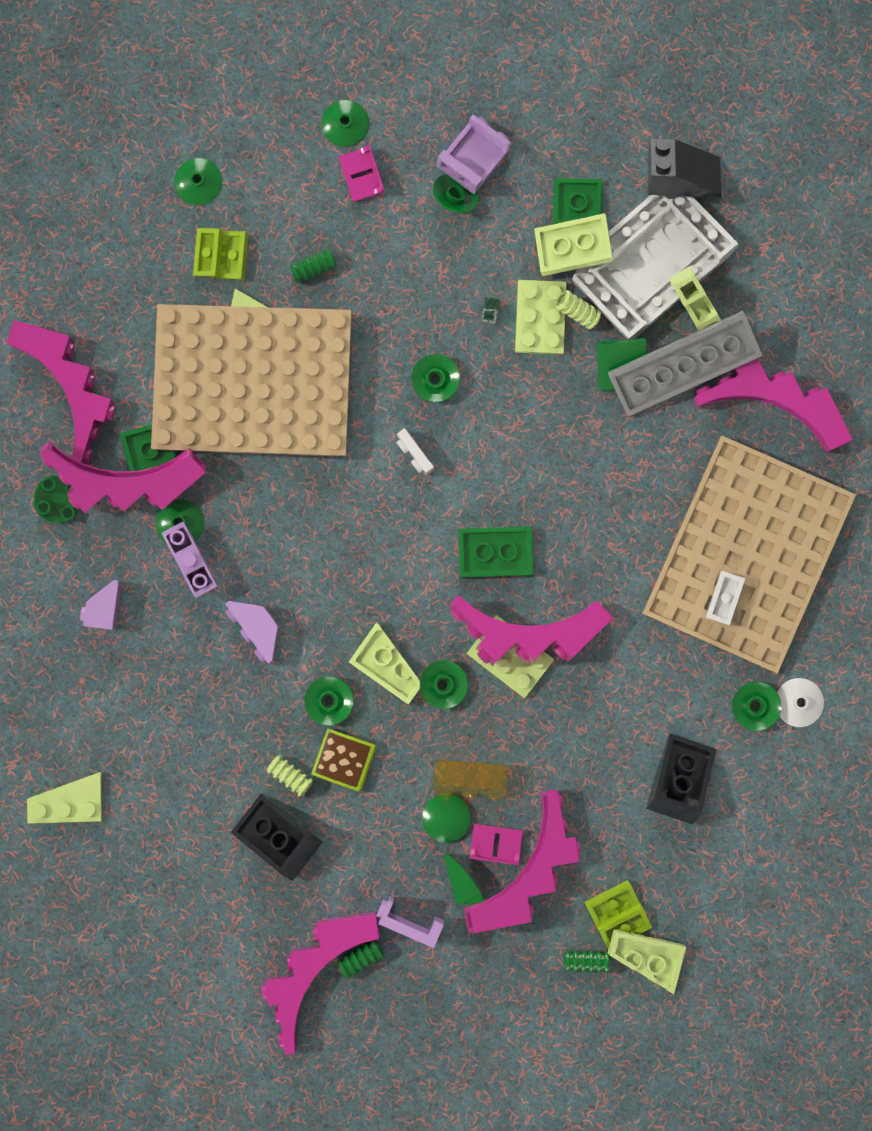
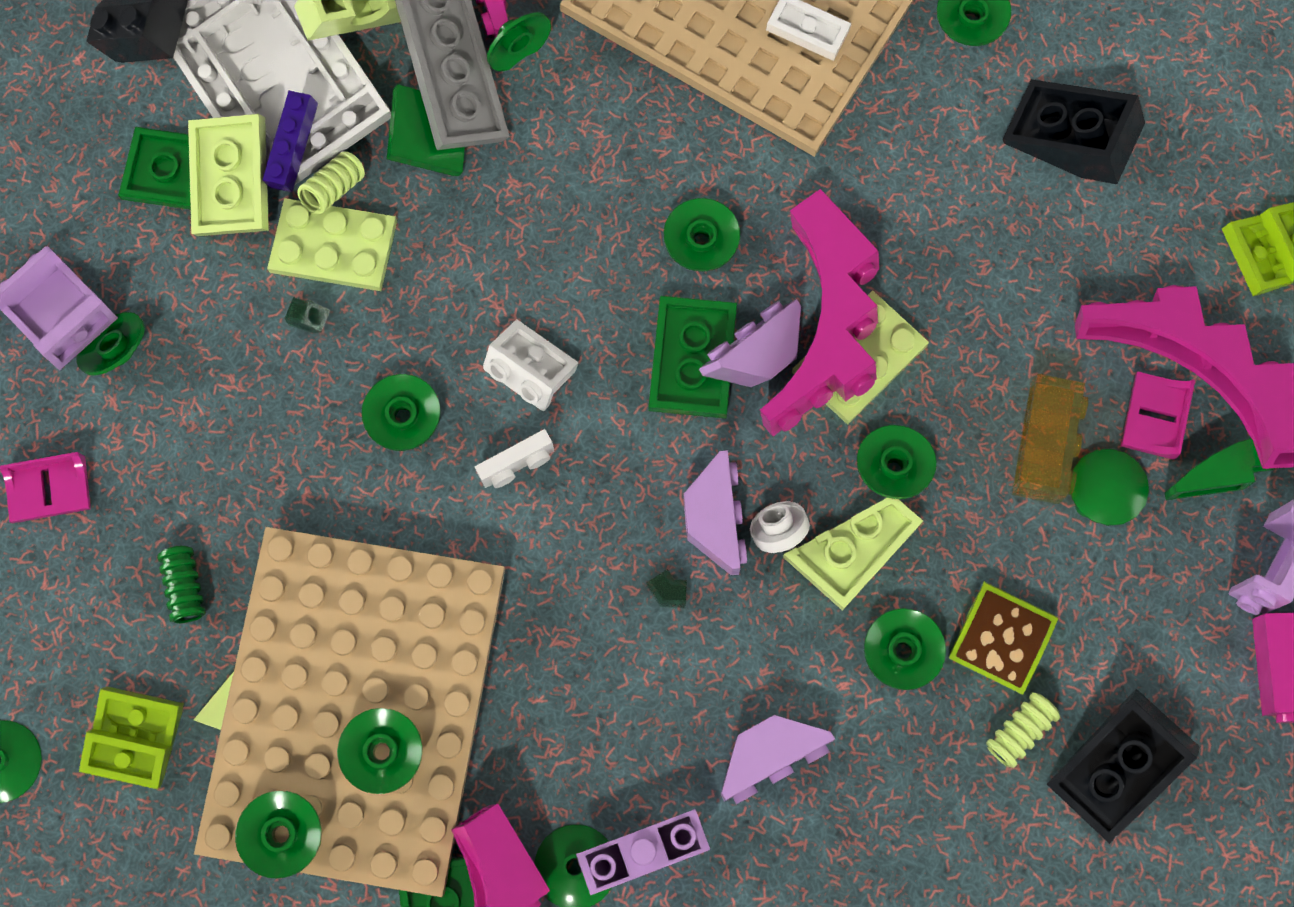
camera: 85 degrees left, 10 degrees down
(163, 342) = (257, 839): none -> green dish
(213, 397) = (358, 748): none -> green dish
(346, 555) = (667, 591): none -> clear green piece
(393, 617) = (779, 527): none -> white plate
(396, 576) = (713, 514): none -> lavender slope
(477, 451) = (528, 364): none -> white bracket
(503, 591) = (760, 348): none -> lavender slope
(585, 538) = (706, 218): none -> green dish
(599, 279) = (290, 141): none -> dark purple piece
(691, 411) = (518, 40): none -> green dish

